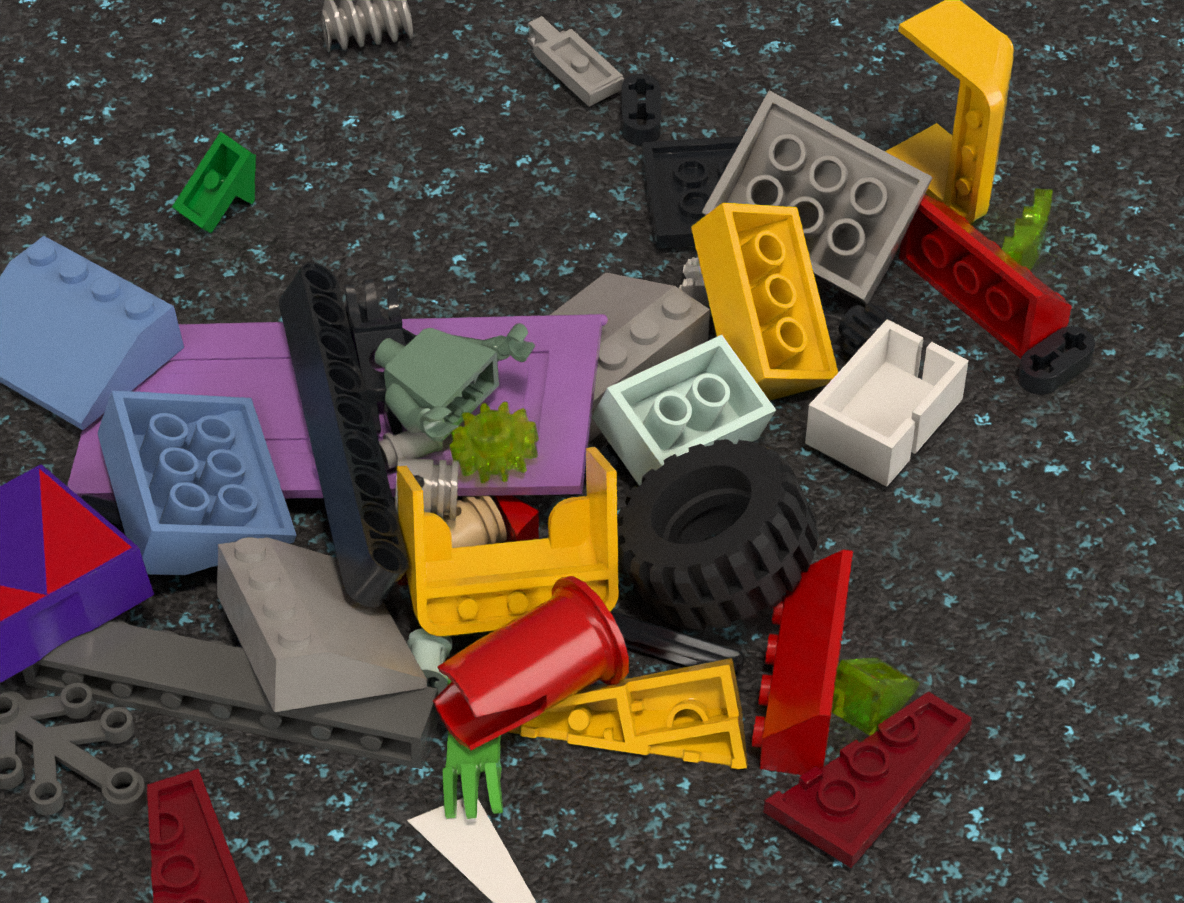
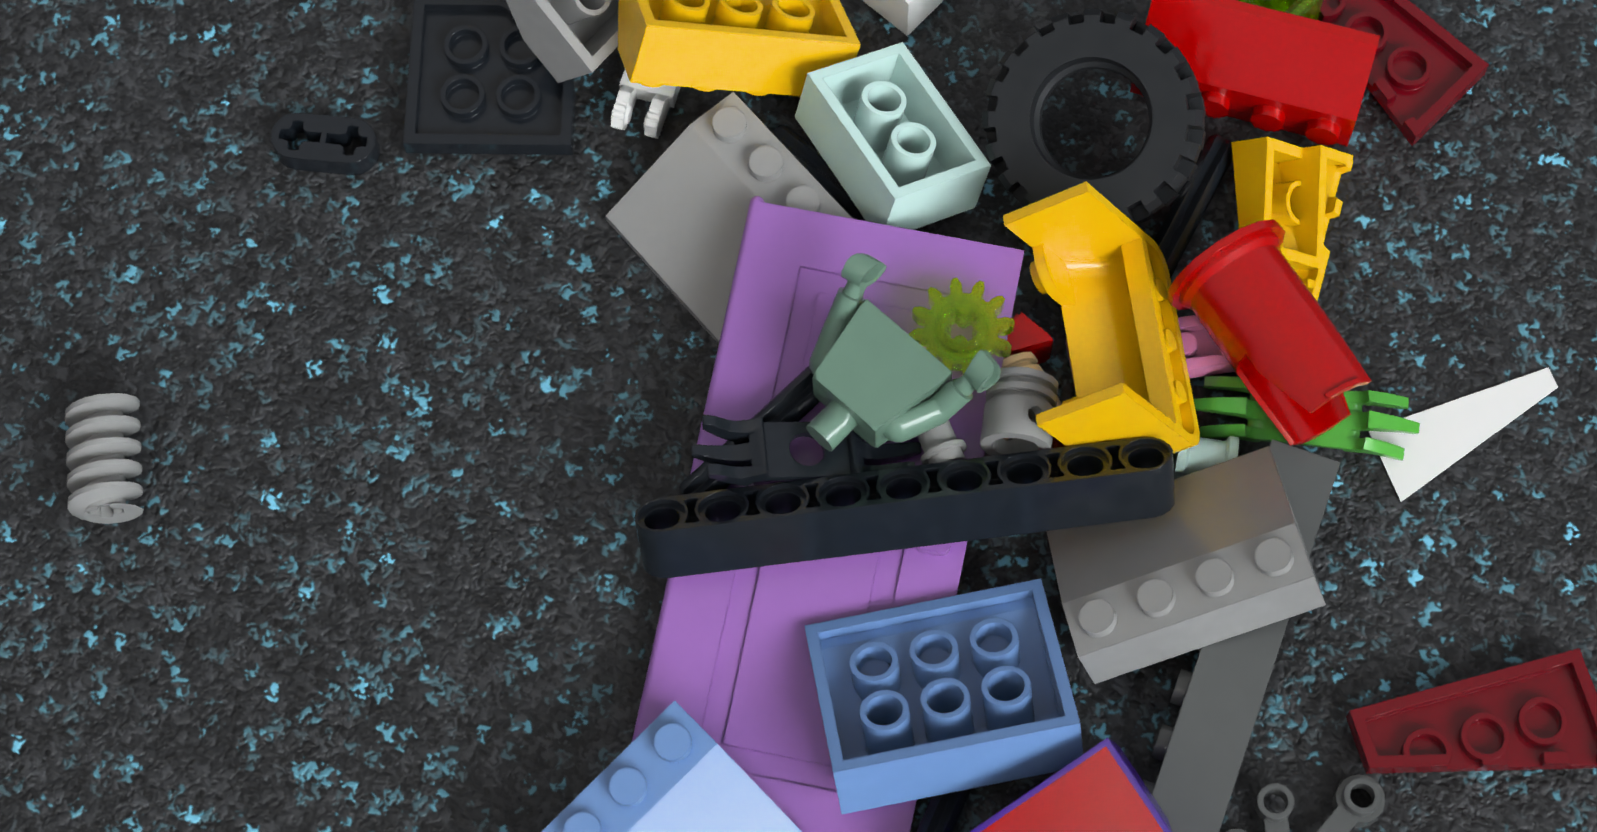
camera: 80 degrees left, 20 degrees up
(221, 175) = (403, 660): green slope -> none
(574, 62) = (227, 212): light grey hinge -> none

